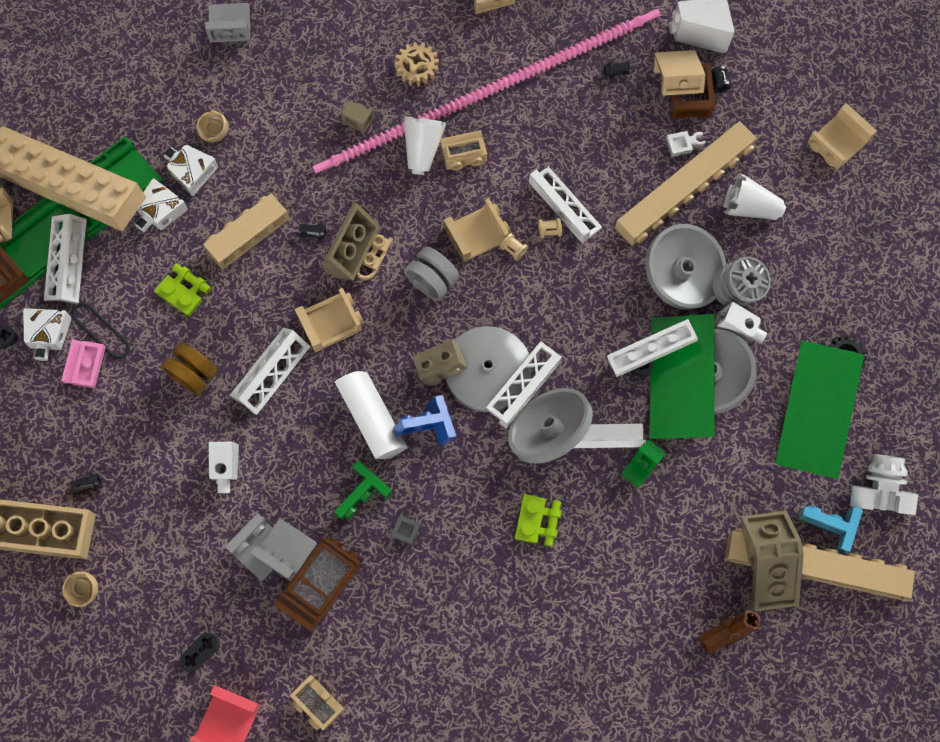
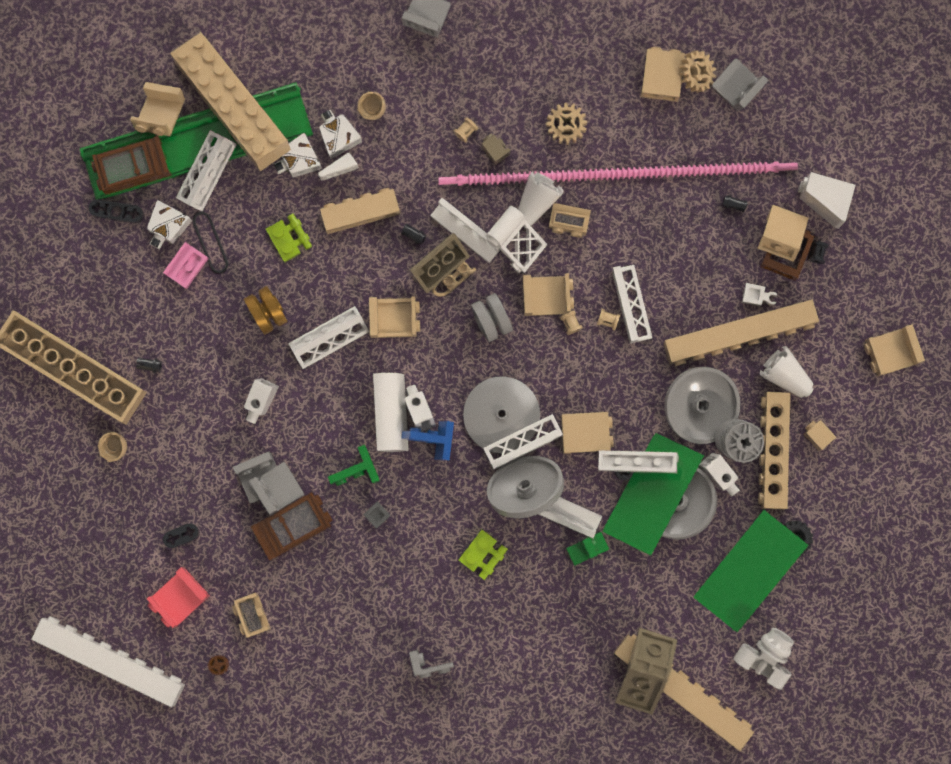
camera: 30 degrees right, 10 degrees up
(206, 197) = (340, 166): none -> white slope
(318, 110) = (465, 129): none -> tan bush
(379, 206) = (464, 229): none -> white fence
(399, 397) = (420, 414): none -> white torso
(404, 185) = (504, 232): none -> white piece
(440, 362) = (464, 394): dark tan brick -> none
(525, 665) = (418, 661): none -> light grey bracket
(583, 345) = (586, 432): none -> tan panel
(730, 631) = (586, 709): reddish brown piece -> none
(801, 306) = (781, 461): none -> tan brick
(814, 246) = (819, 435): none -> tan brick
(835, 524) = (713, 666): medium azure bracket -> none

